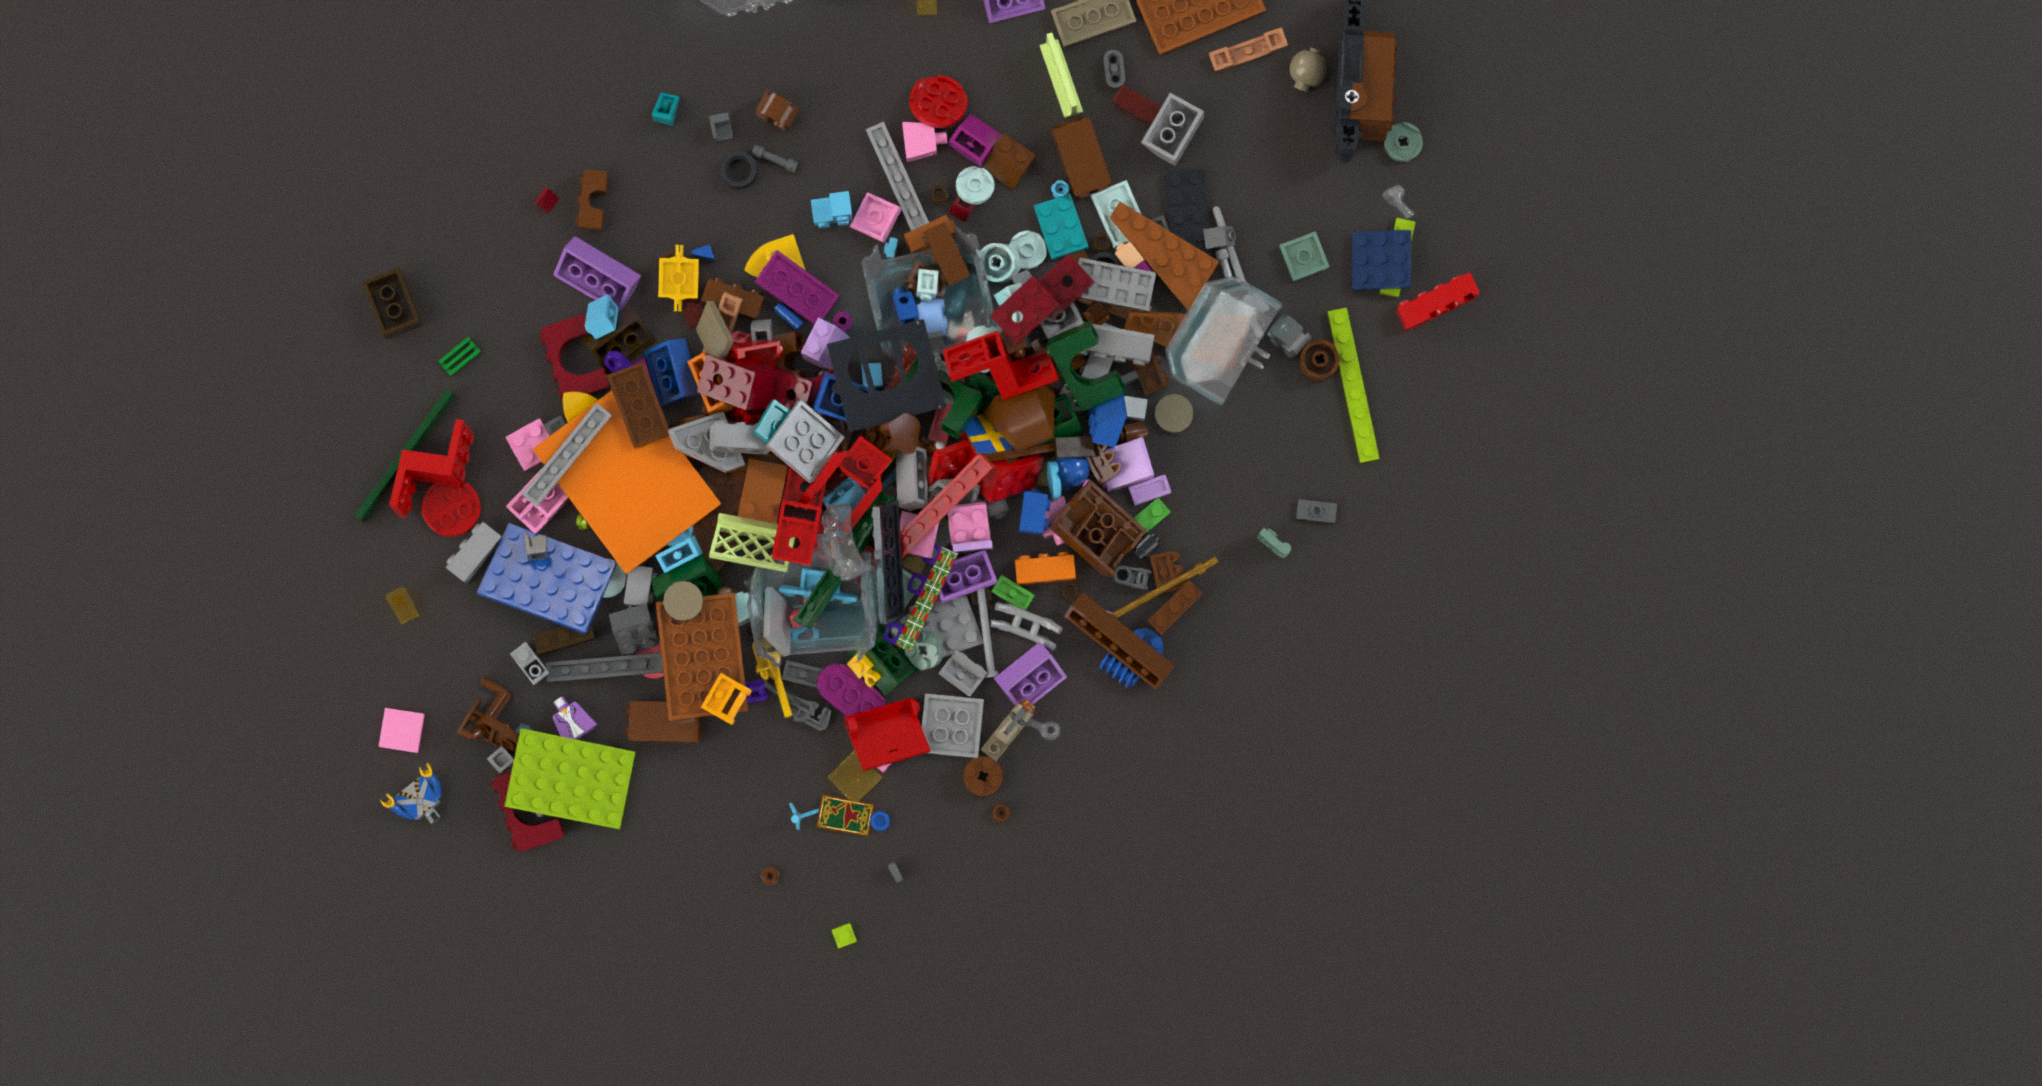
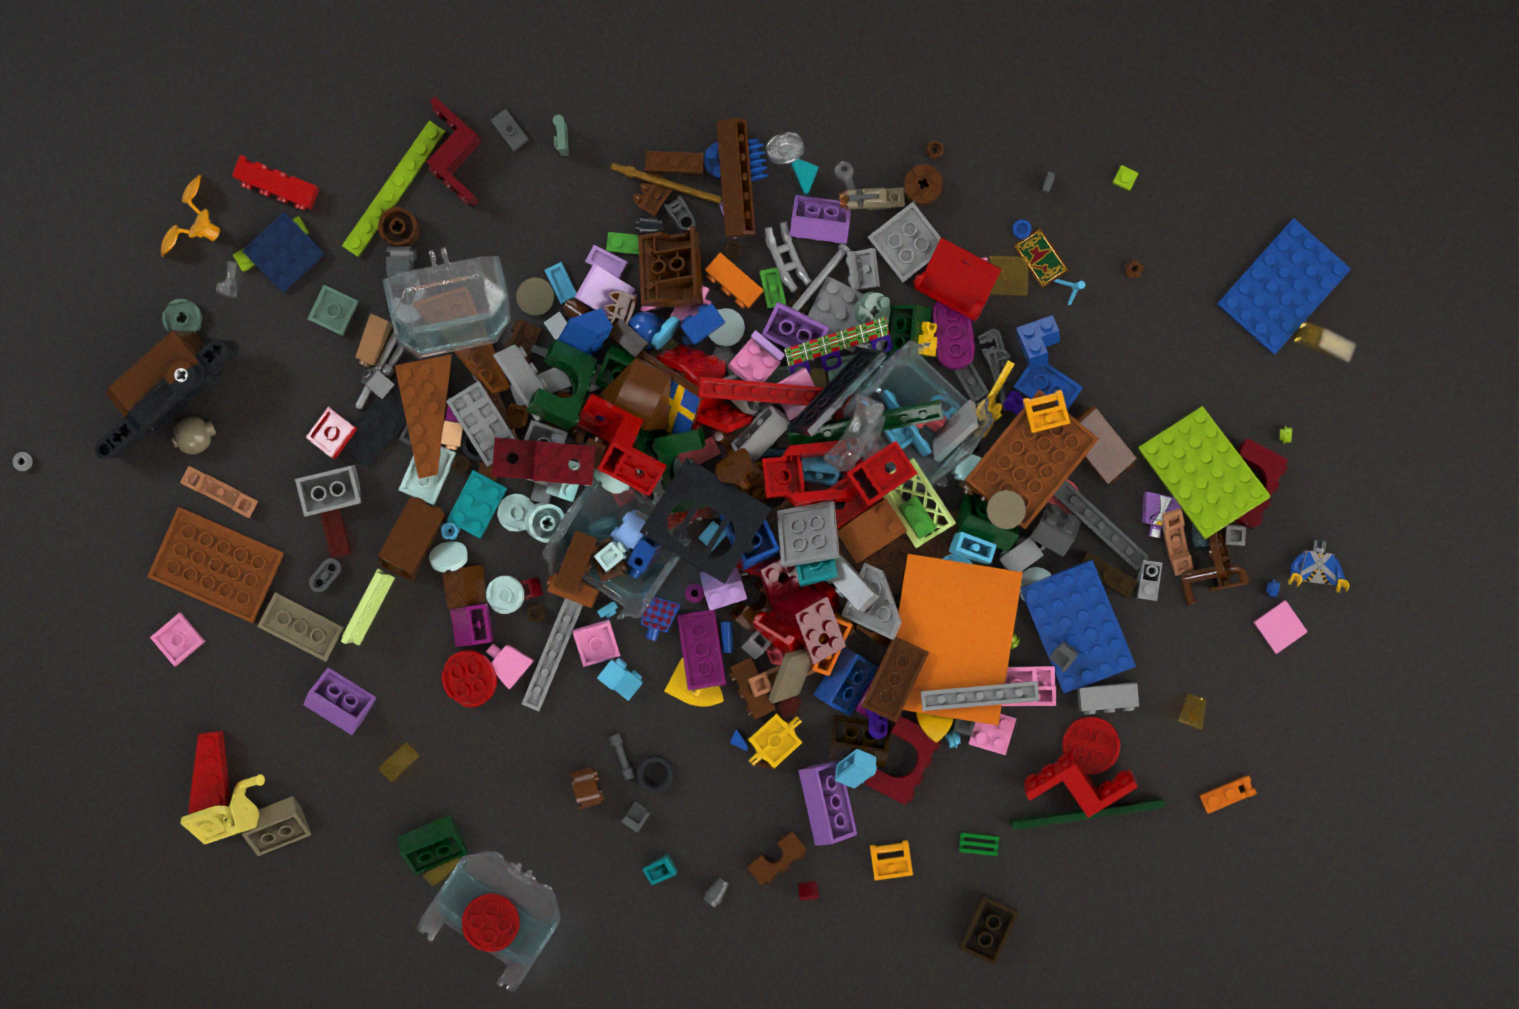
camera: 130 degrees left, 5 degrees up
(318, 573) = (1227, 794): none -> orange plate
(434, 751) = (1273, 588): none -> blue plate
(504, 278) = (893, 866): none -> light orange plate
(537, 710) = (1176, 542): none -> nougat slope
(538, 871) = (1286, 434): none -> lime plate
(554, 410) = (952, 739): none -> medium azure plate
(577, 967) = (1325, 341): none -> clear yellow slope
(610, 132) = (716, 892): none -> dark grey cone
(649, 976) = (1283, 286): none -> blue plate
(740, 534) = (918, 517): none -> bright green plate
(749, 728) = (1048, 381): none -> blue plate
(789, 752) = (1035, 338): none -> blue brick
(850, 281) = (659, 616): none -> torso
(1010, 535) = (730, 332): none -> light aqua tile
(1041, 169) = (448, 556): none -> light aqua tile
(1074, 697) = (805, 174): none -> teal slope
(1107, 700) = (785, 148): none -> clear tile
(1165, 442) = (561, 282): none -> medium azure tile
(1214, 170) = (331, 433): none -> tile
(1252, 263) = (373, 340): none -> medium nougat slope
(1336, 452) = (453, 152): none -> dark red bracket
(1453, 217) = (201, 226): none -> light orange plant

